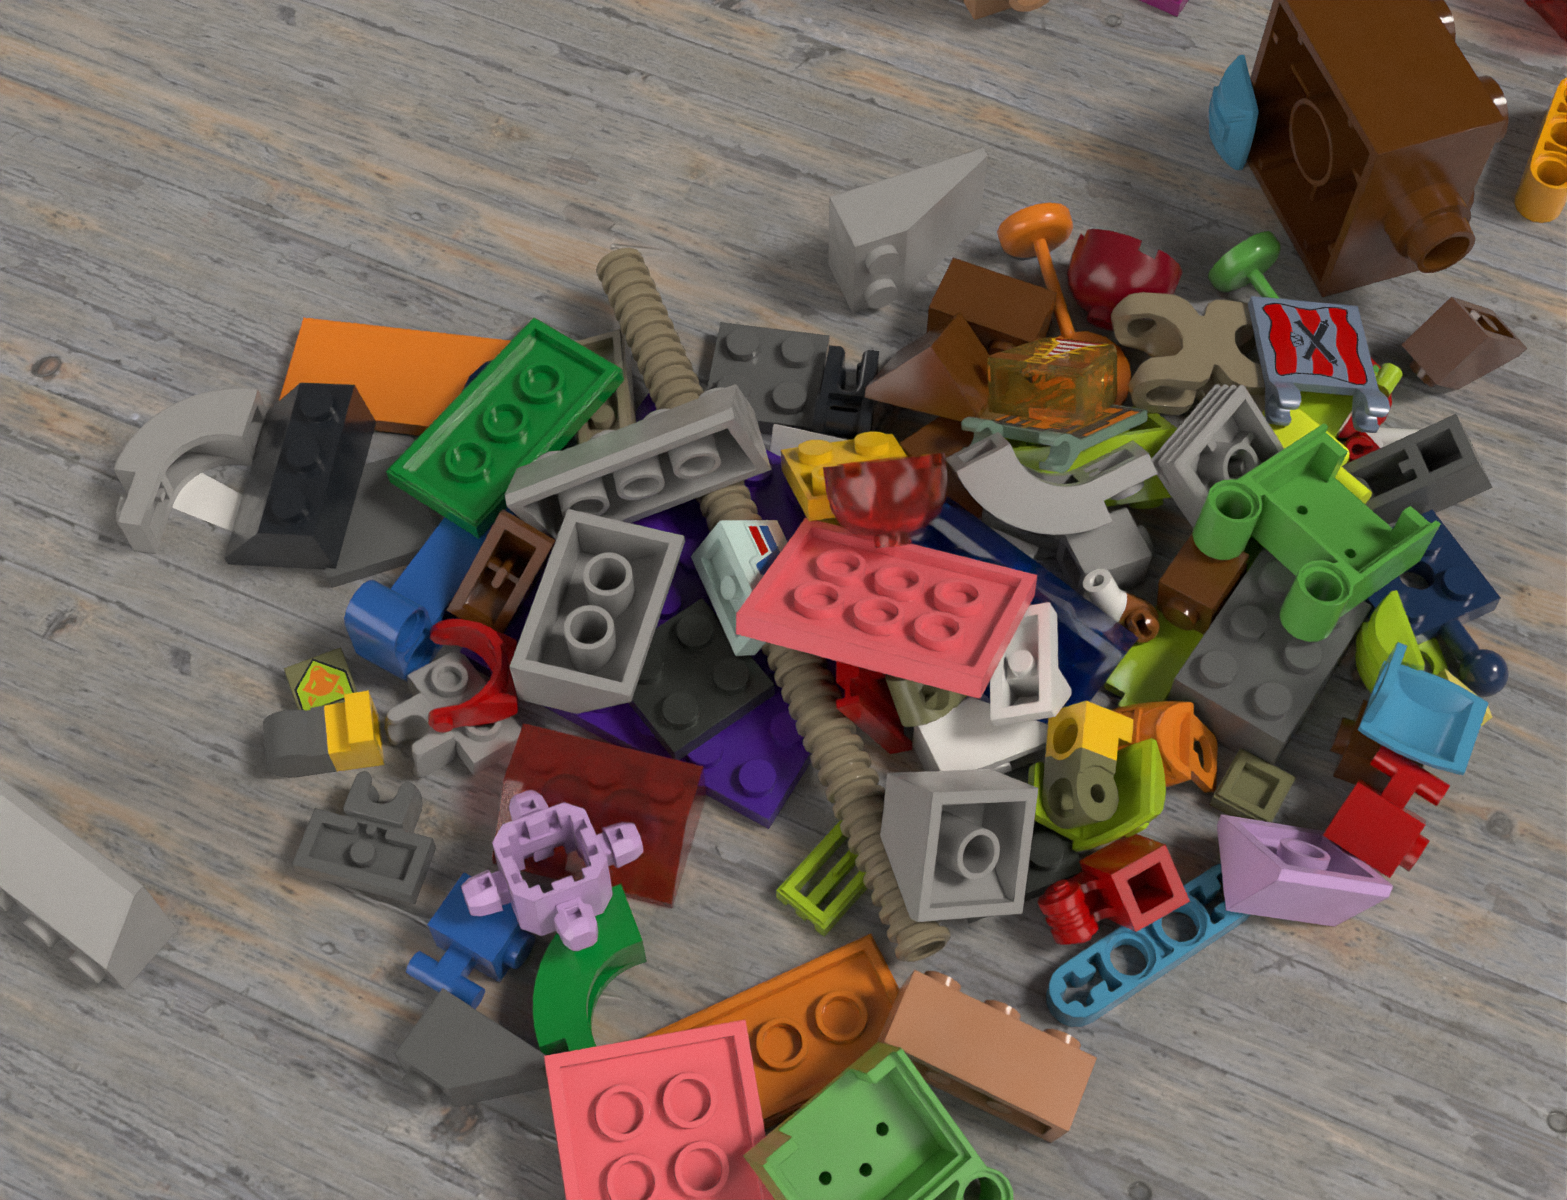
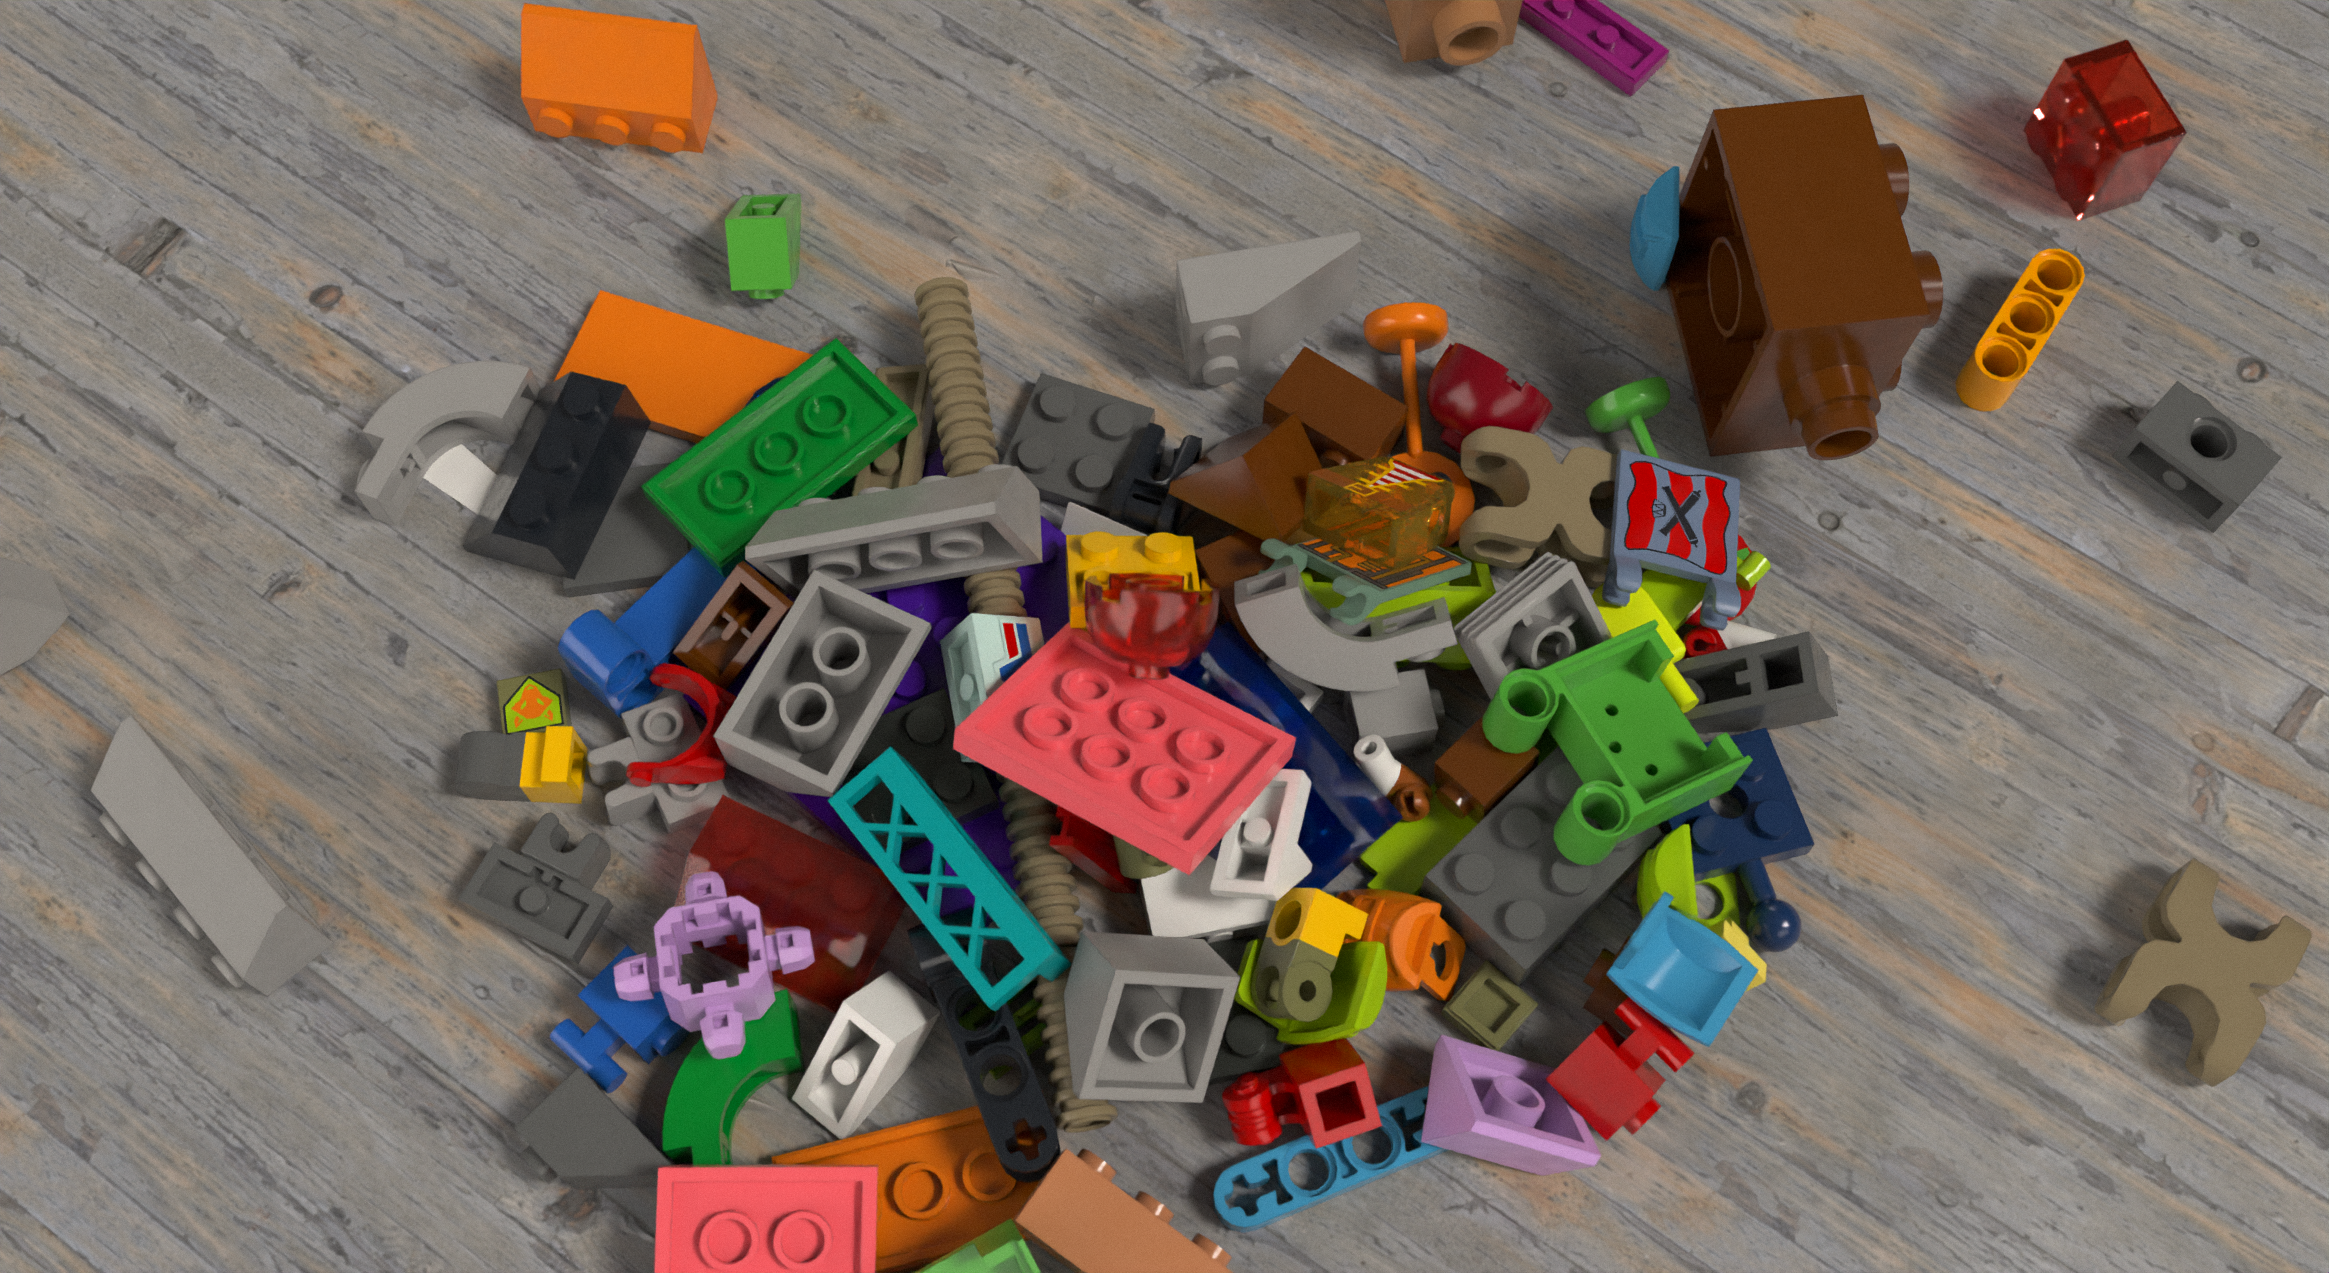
camera: 10 degrees right, 5 degrees up
(280, 133) = (616, 78): none -> orange slope
(446, 255) = (764, 244): none -> bright green slope
(702, 931) = (865, 1053): none -> white slope
(771, 740) = (967, 860): none -> teal fence
(773, 837) = (987, 1049): none -> black piece
(1461, 345) = (1848, 543): reddish brown slope -> none

